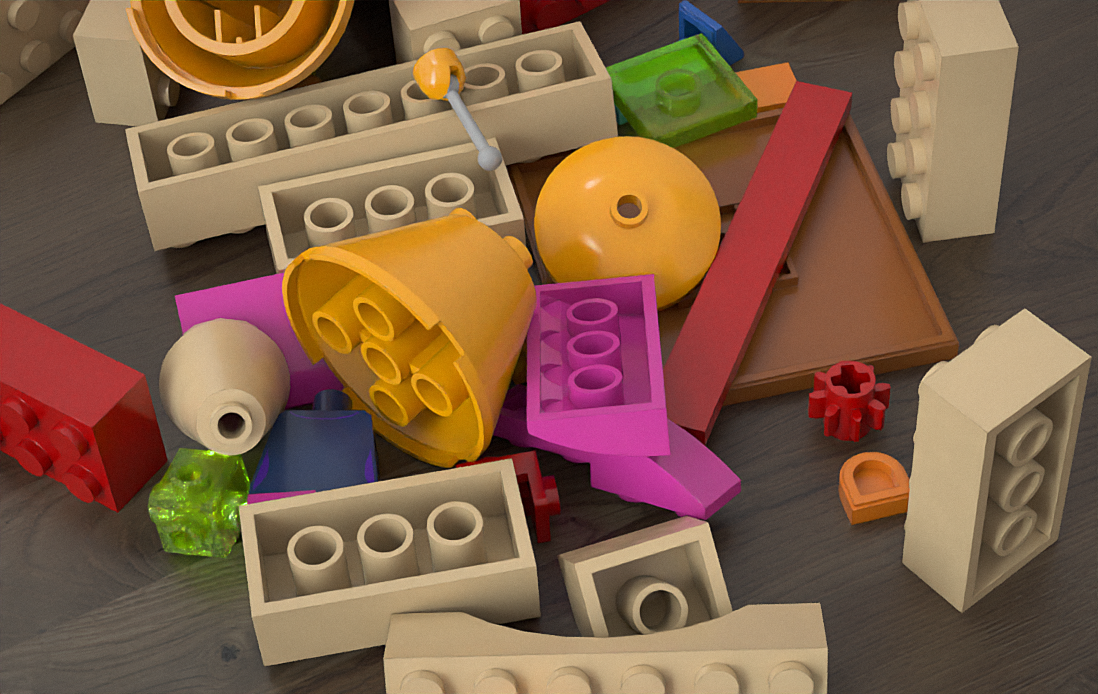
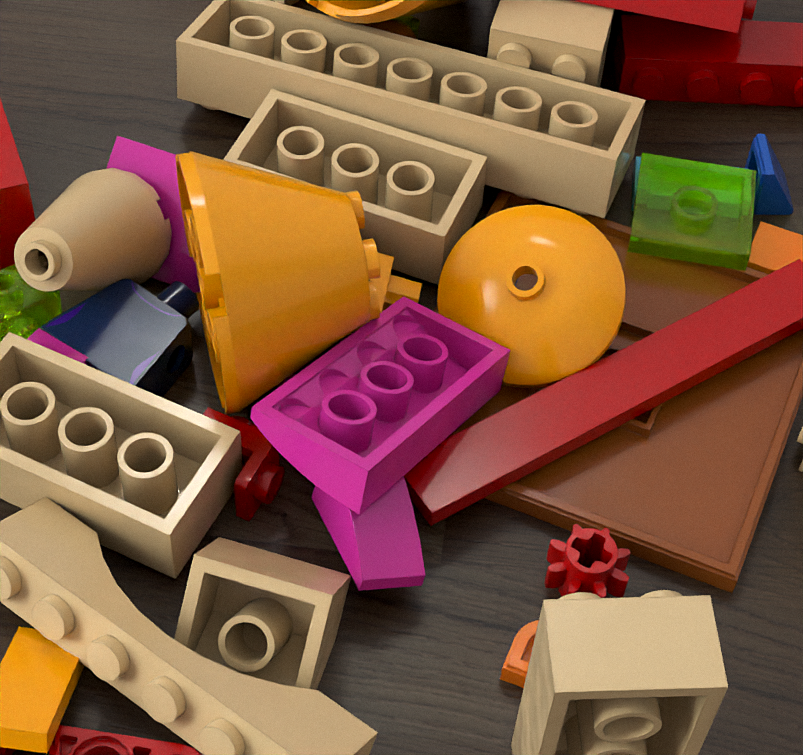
camera: 30 degrees right, 5 degrees up
(443, 77) = (475, 91): hinge -> none

